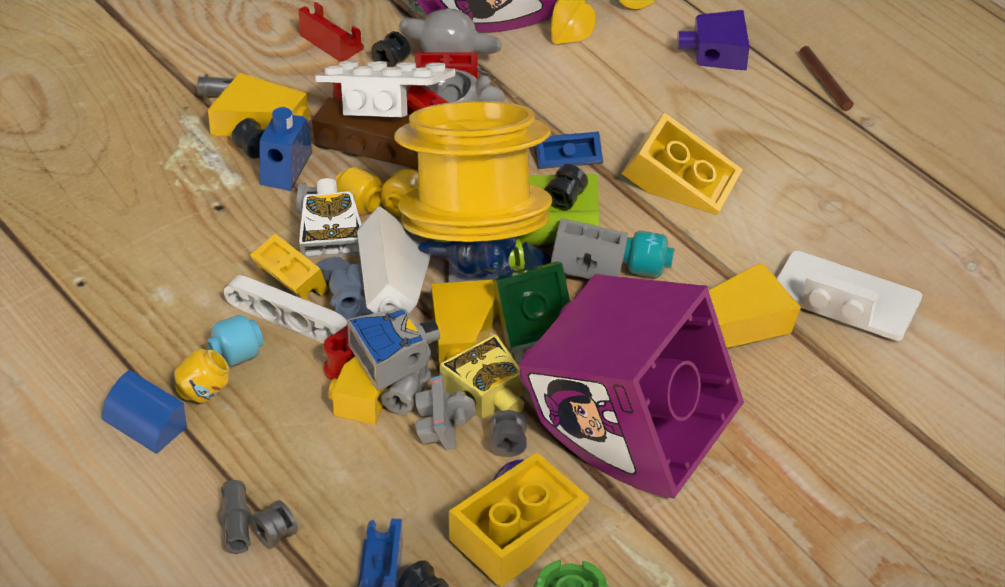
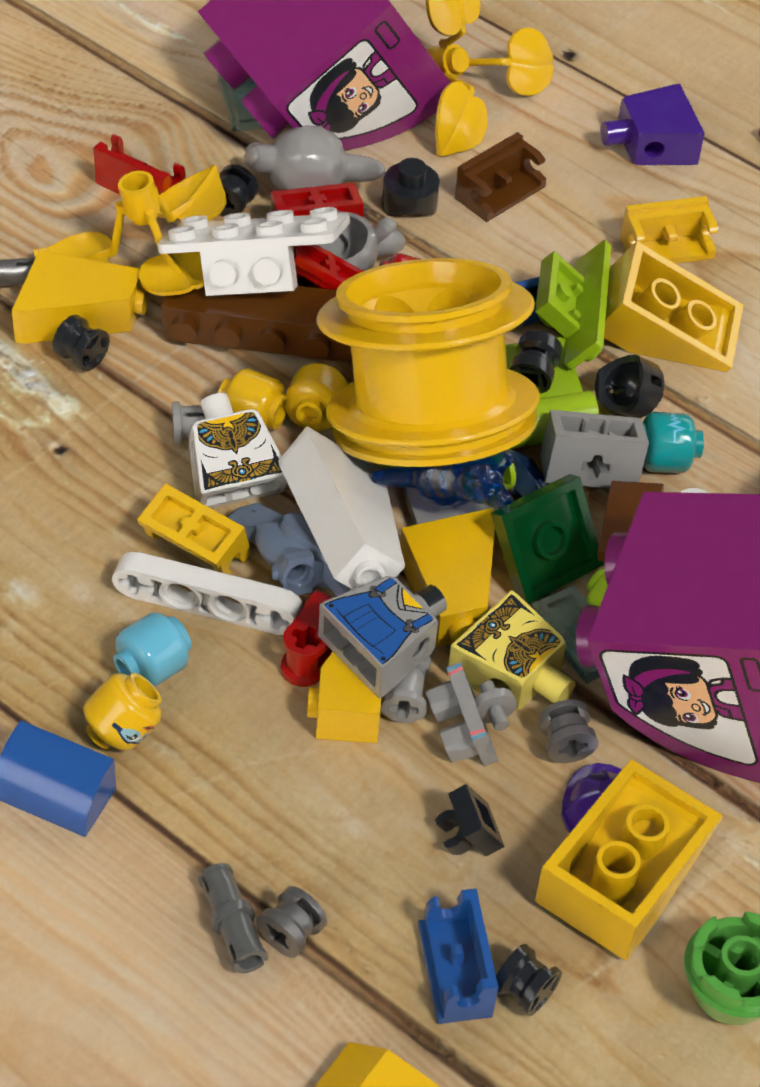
camera: 15 degrees left, 5 degrees up
(284, 149) = (137, 335): blue torso -> none
(313, 48) = (141, 203): none -> yellow plant
(419, 482) = (474, 821): none -> black tile
(521, 62) = (410, 188): none -> black piece
(589, 62) = (499, 177): none -> reddish brown hinge
(608, 149) = (576, 301): none -> lime bracket
(639, 212) = (635, 386): none -> black piece
(705, 111) = (672, 228): none -> yellow hinge

